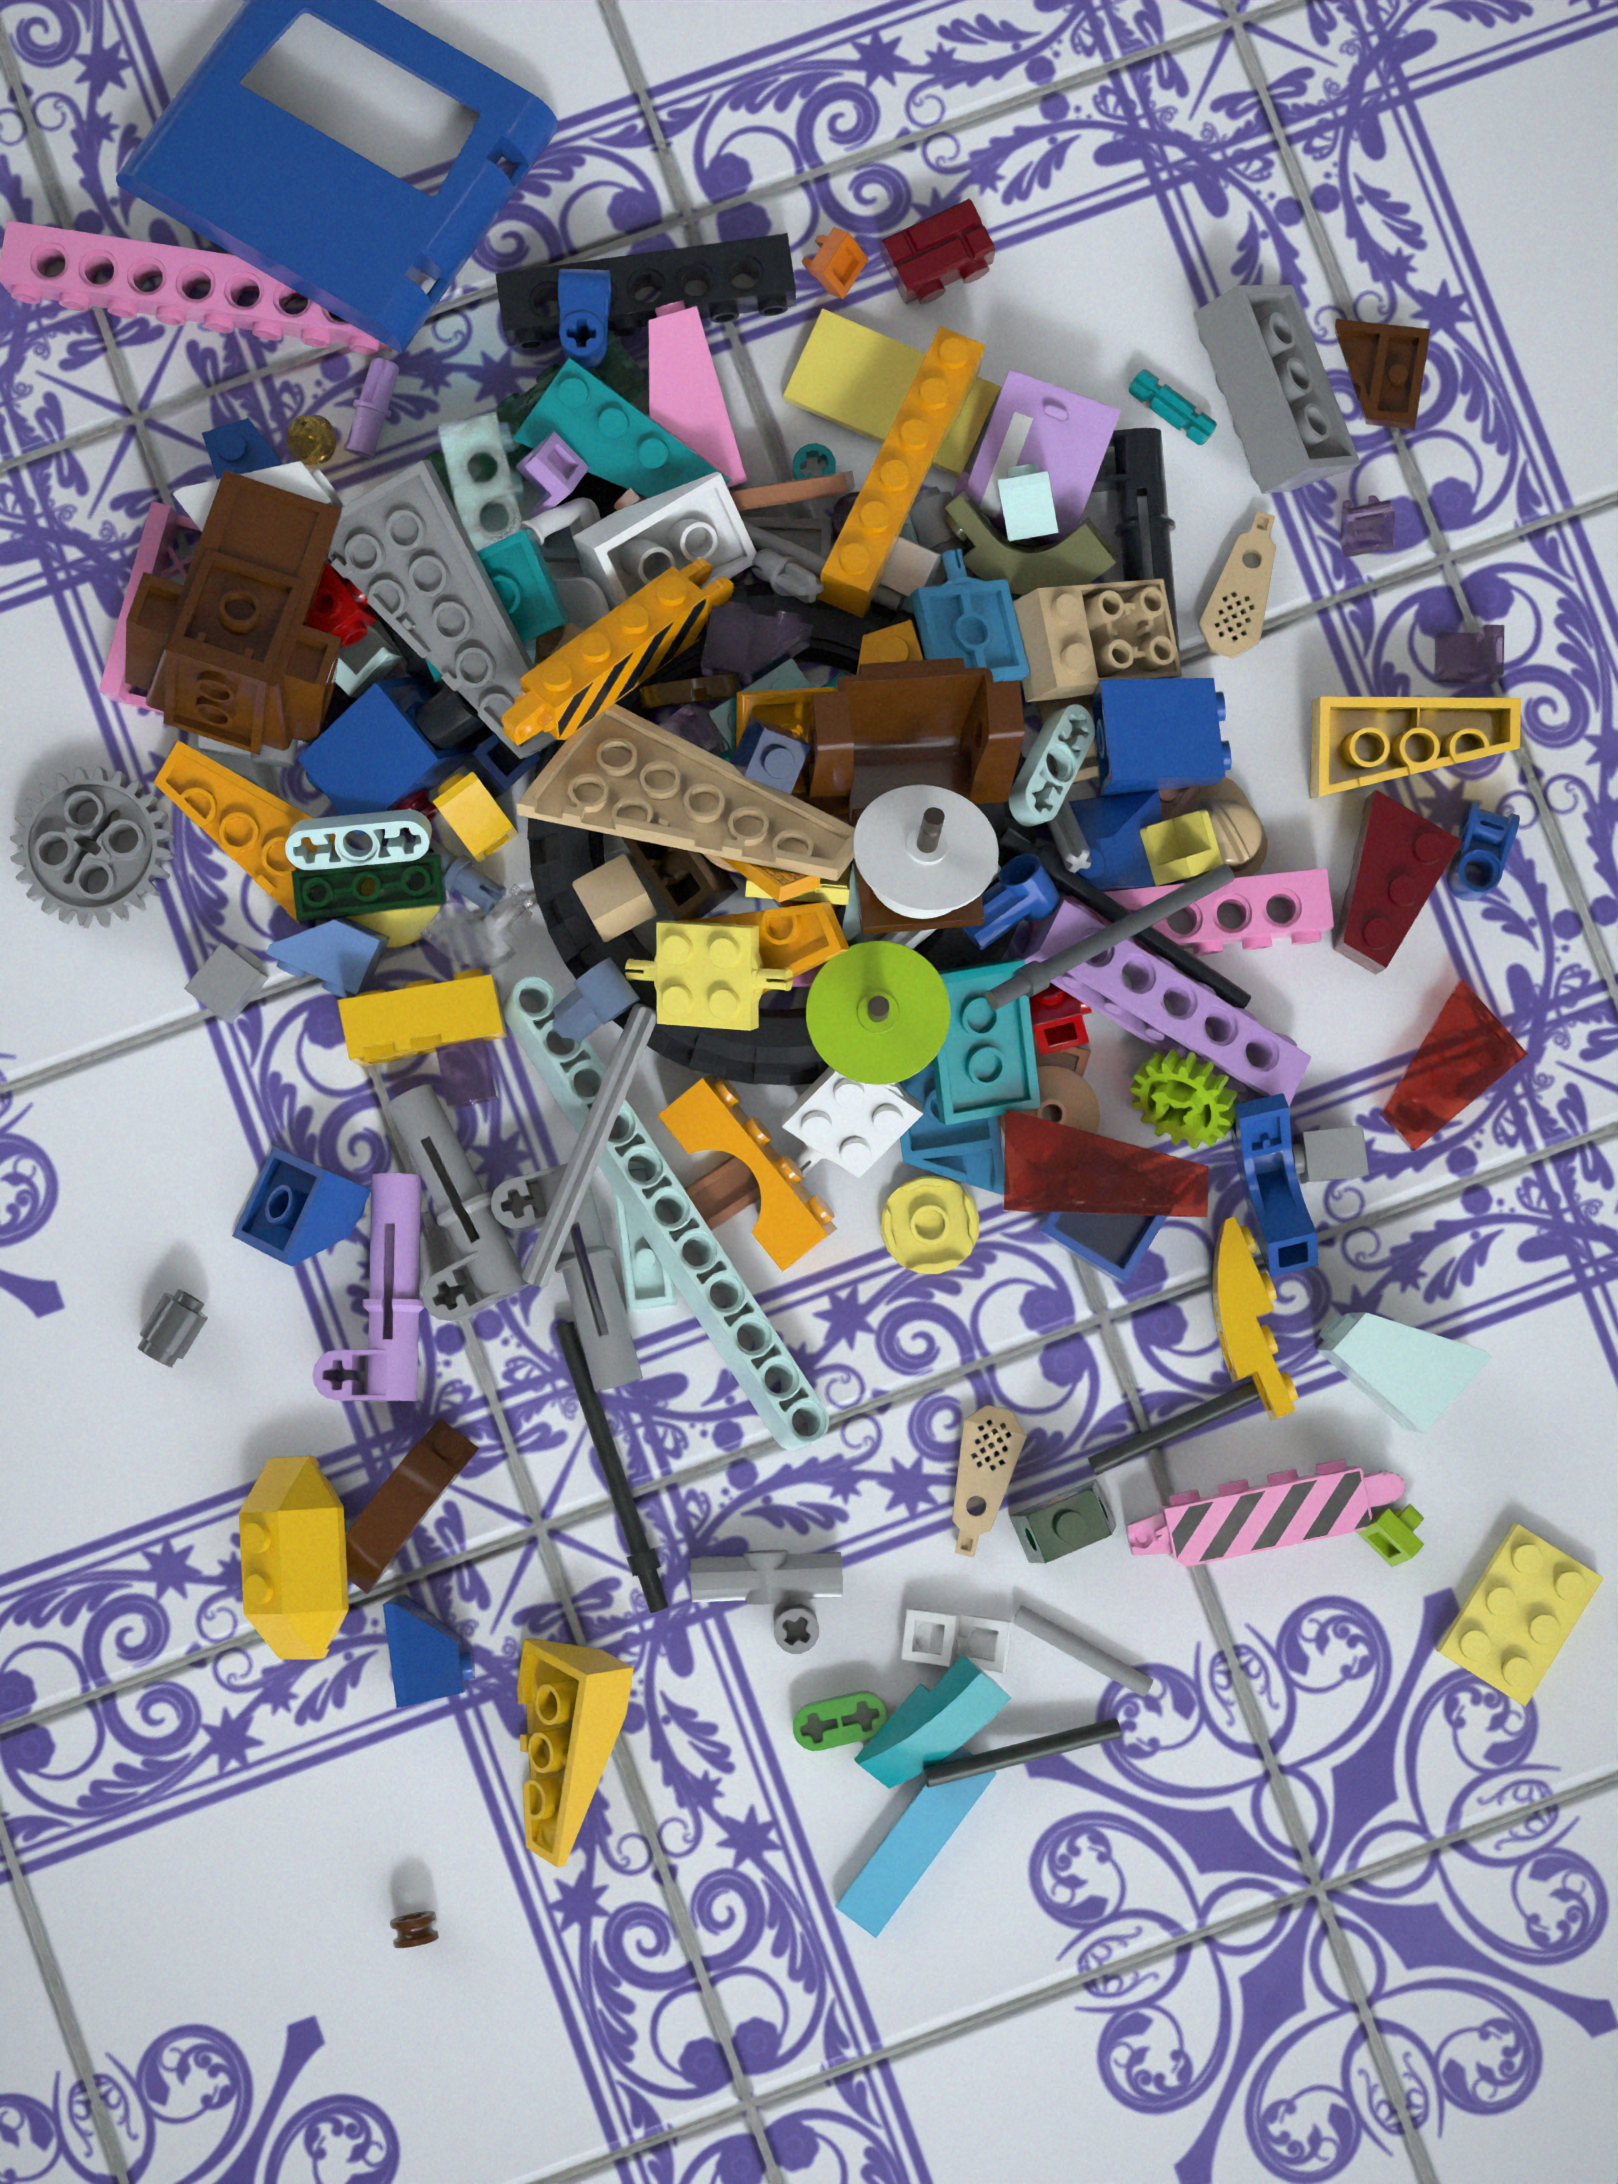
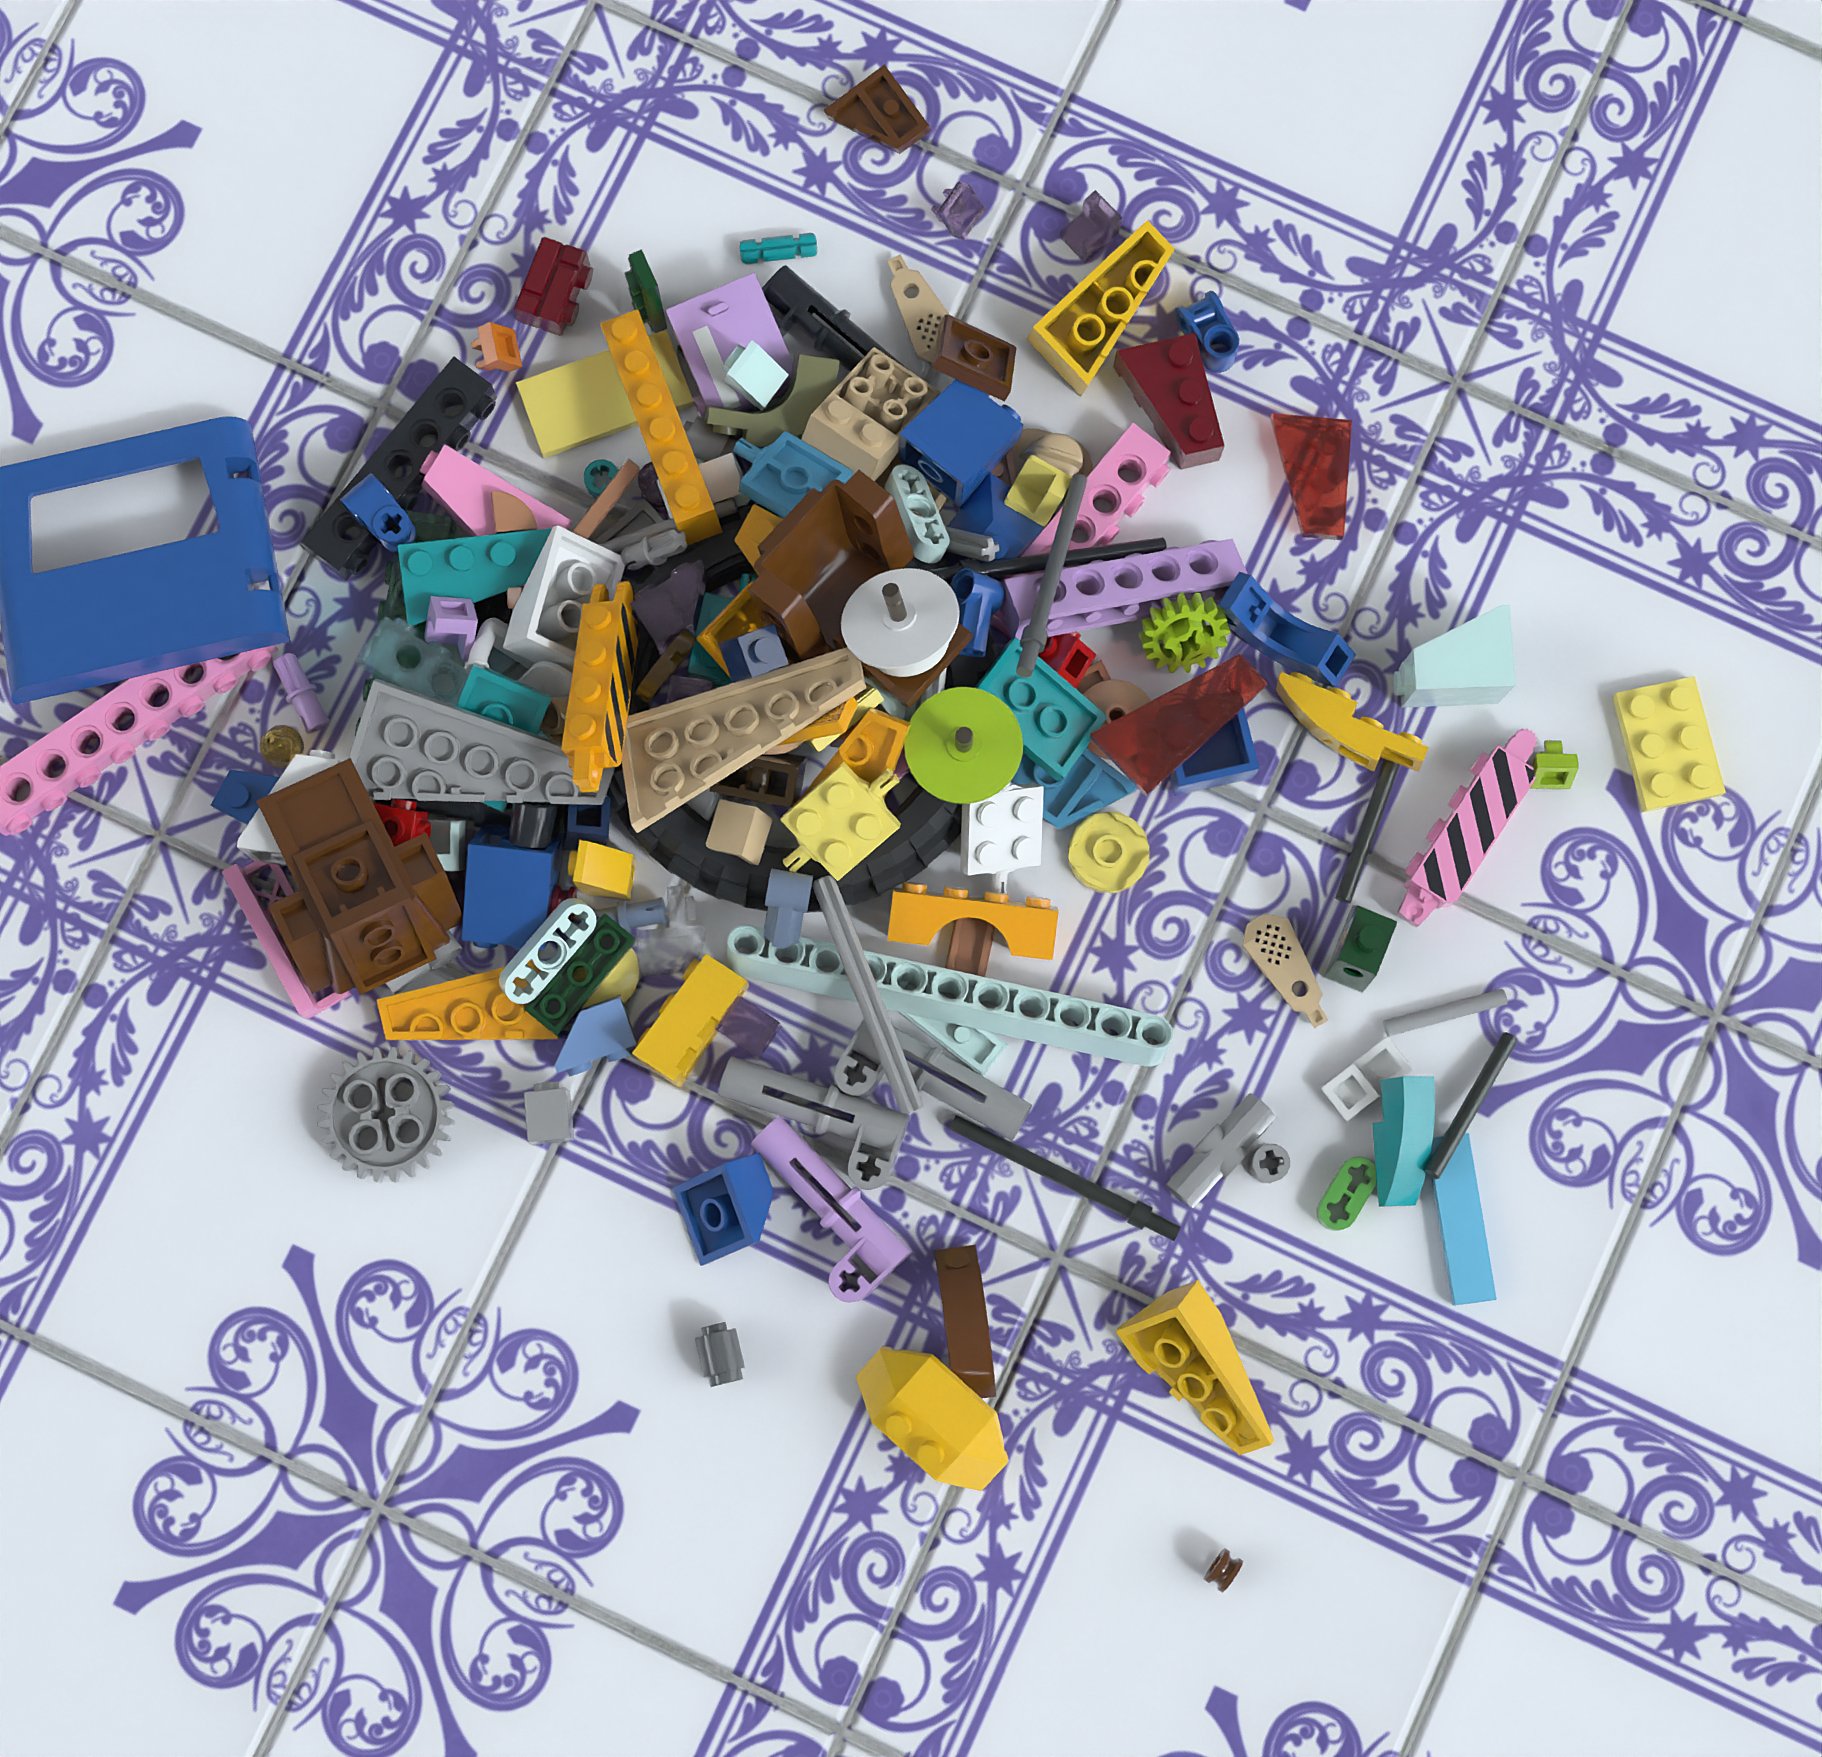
camera: 45 degrees left, 5 degrees down
(424, 1654) = (1069, 1396): blue slope -> none
(696, 424) = (511, 514): none -> nougat tile
(1006, 335) = (645, 292): none -> dark green tile
(1244, 674) = (974, 357): none -> reddish brown tile
(1275, 387) = (827, 181): light grey slope -> none
(1330, 1154) = (1299, 584): light grey brick -> none

